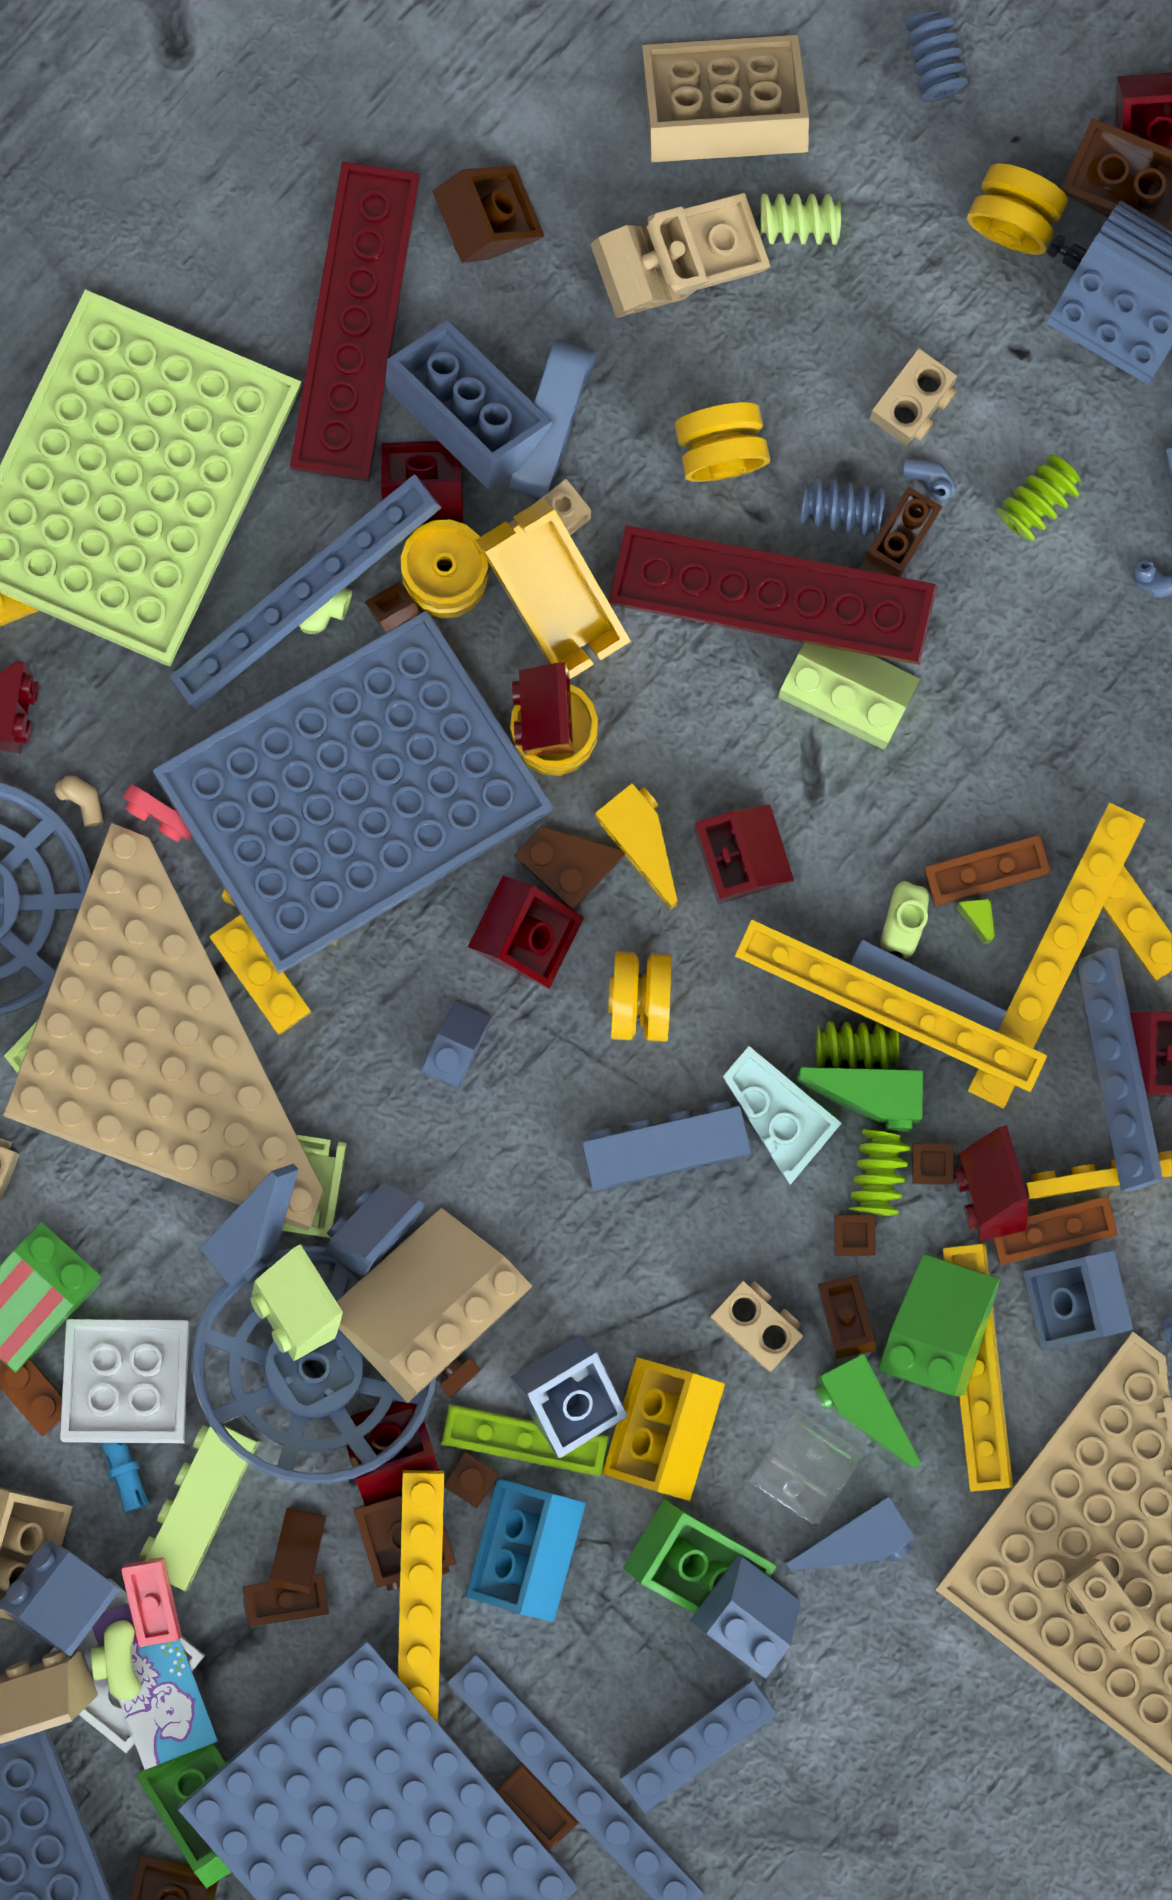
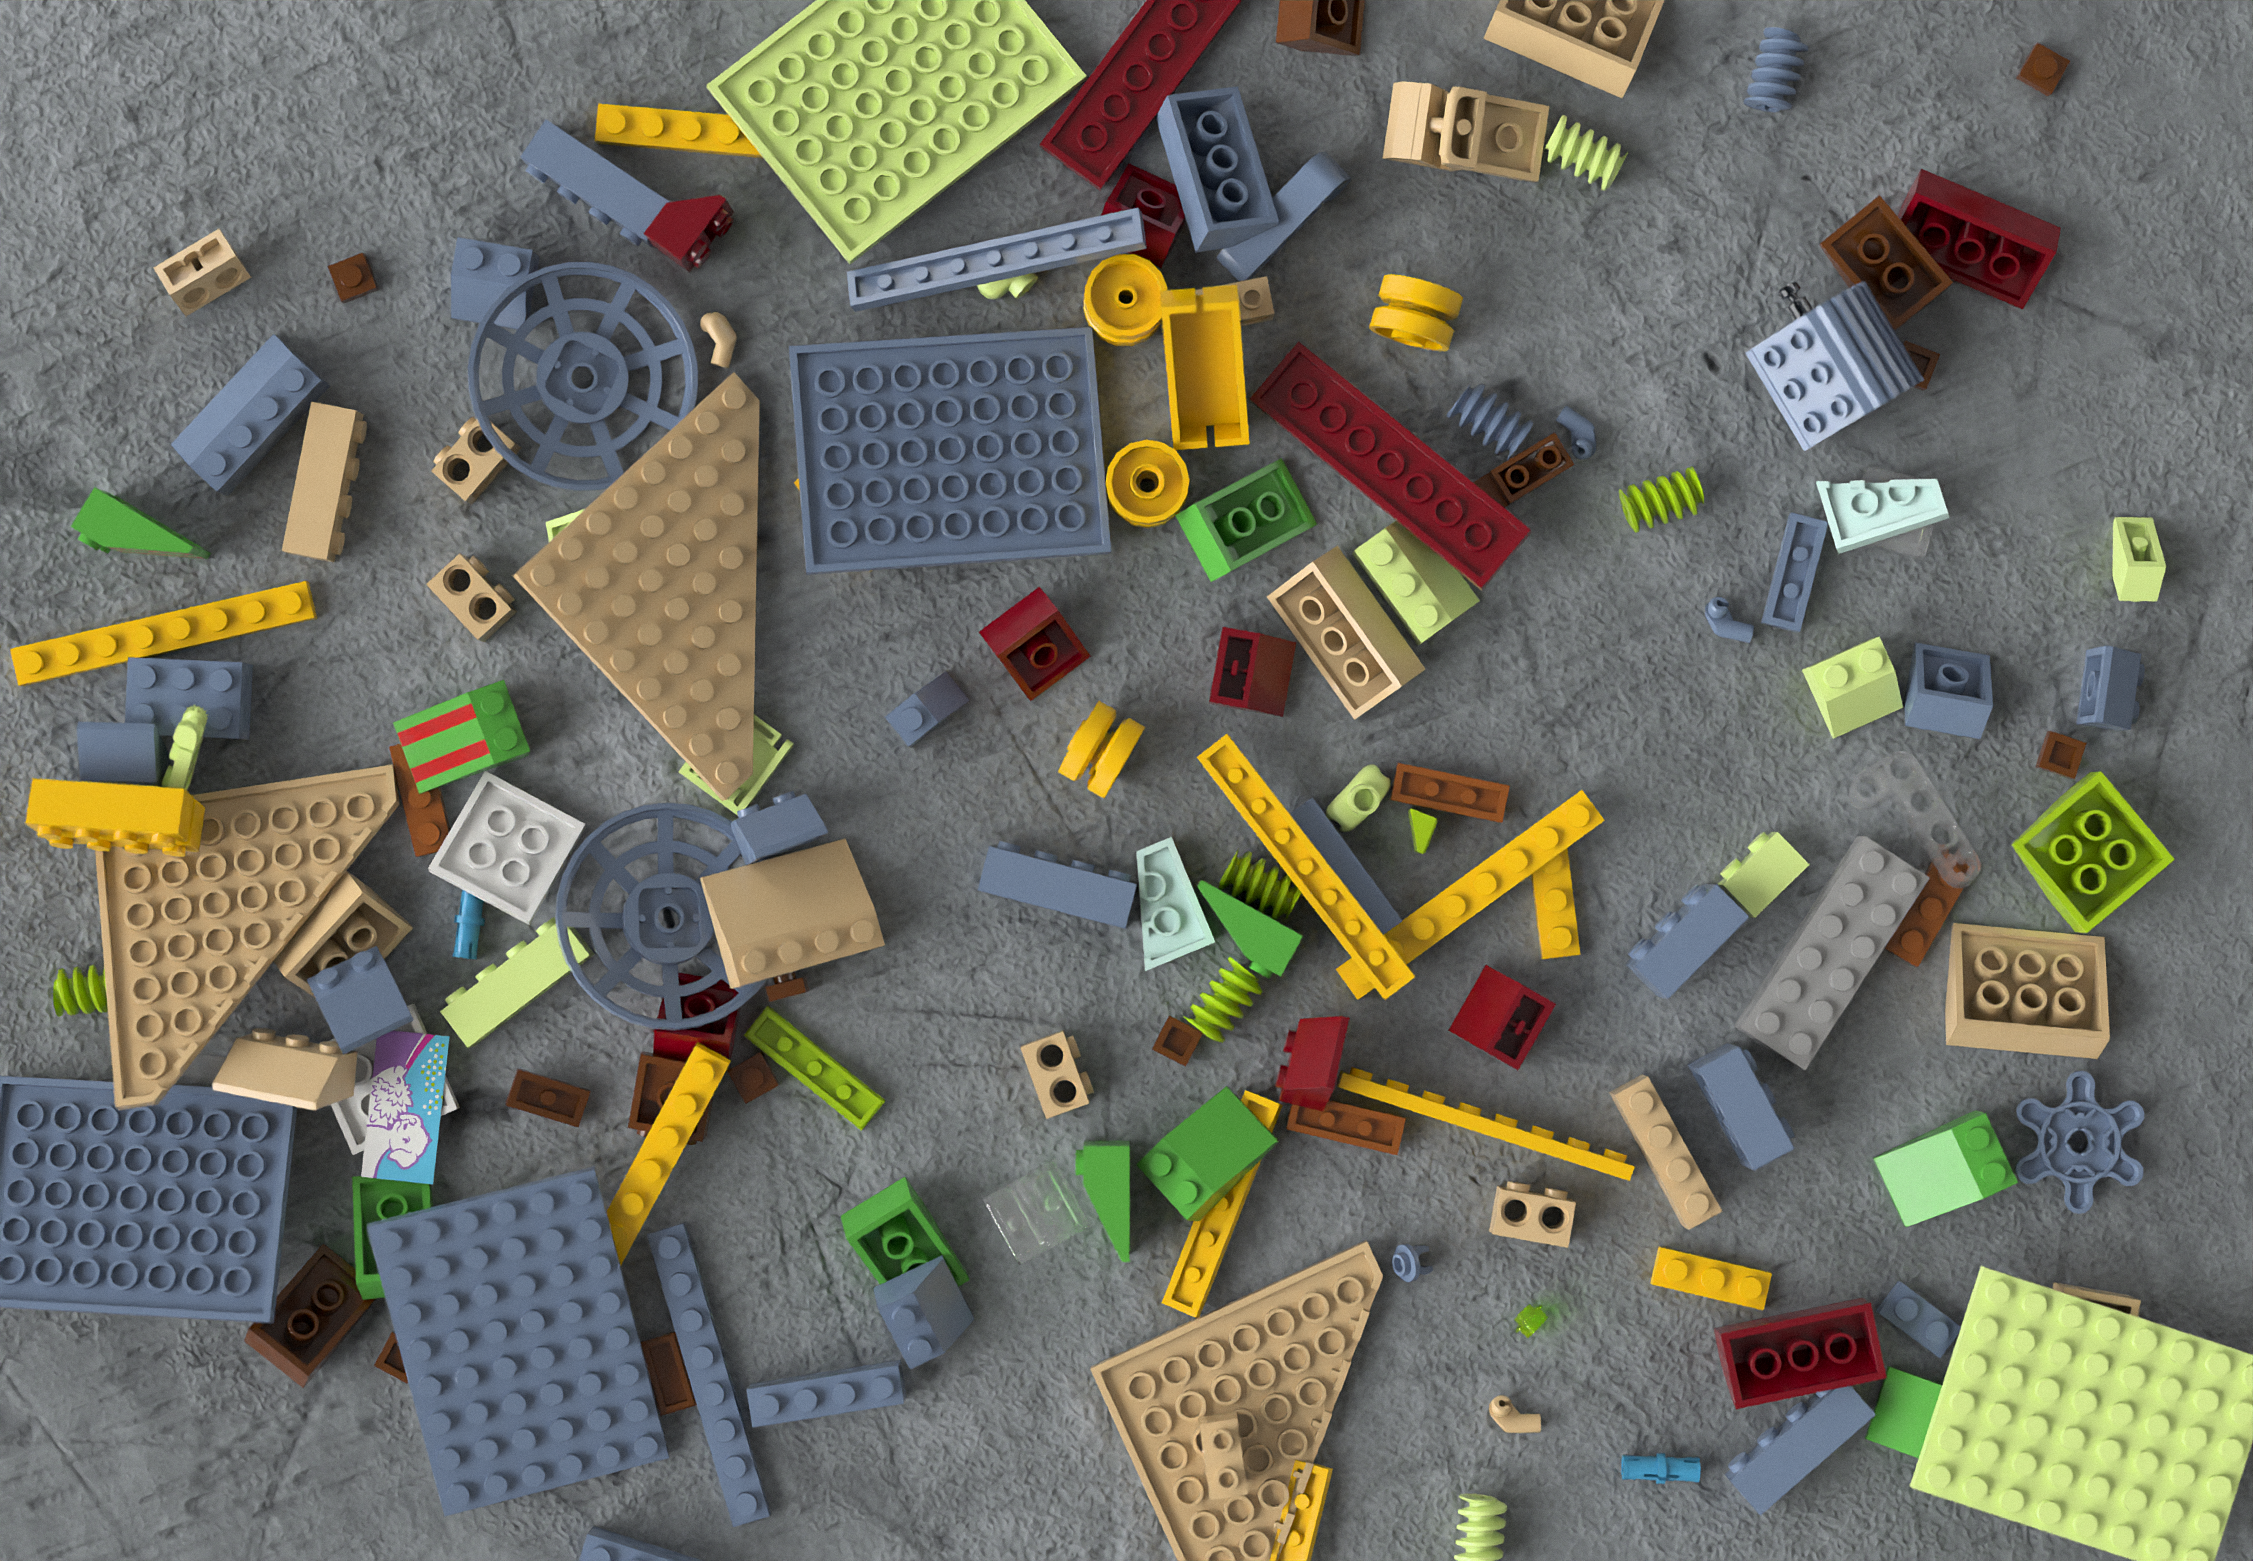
camera: 30 degrees right, 5 degrees up
(115, 1661) = (380, 1076): yellowish green piece -> none
(144, 805) = (768, 370): coral plate -> none
(151, 1602) = (434, 1043): coral plate -> none
(253, 1229) = (674, 779): sand blue slope -> none
(269, 990) = (796, 590): yellow plate -> none
(296, 1304) = (678, 860): yellowish green slope -> none
(297, 1550) = (578, 1062): reddish brown tile -> none
(392, 607) = (1064, 309): reddish brown plate -> none
(525, 1550) = (767, 1159): dark azure slope -> none
(545, 710) = (1143, 467): dark red slope -> none
(567, 863) = (1100, 604): reddish brown wing -> none
(569, 1396) = (869, 1051): sand blue slope -> none
(637, 831) = (1171, 605): yellow slope -> none
(663, 715) = (1246, 519): none -> bright green slope
(664, 1429) = (933, 1119): yellow slope -> none
(811, 771) = (1345, 632): none -> tan slope
(847, 1317) = (1133, 1106): reddish brown plate -> none
(864, 1538) = (1054, 1295): sand blue slope -> none
(907, 394) = (1596, 351): tan brick -> none
(932, 1163) = (1273, 1015): reddish brown plate -> none
(1017, 209) = (1774, 240): yellow wheel -> none
(1077, 1300) = (1335, 1191): sand blue slope -> none
(1119, 1070) = (1470, 1019): sand blue plate -> none

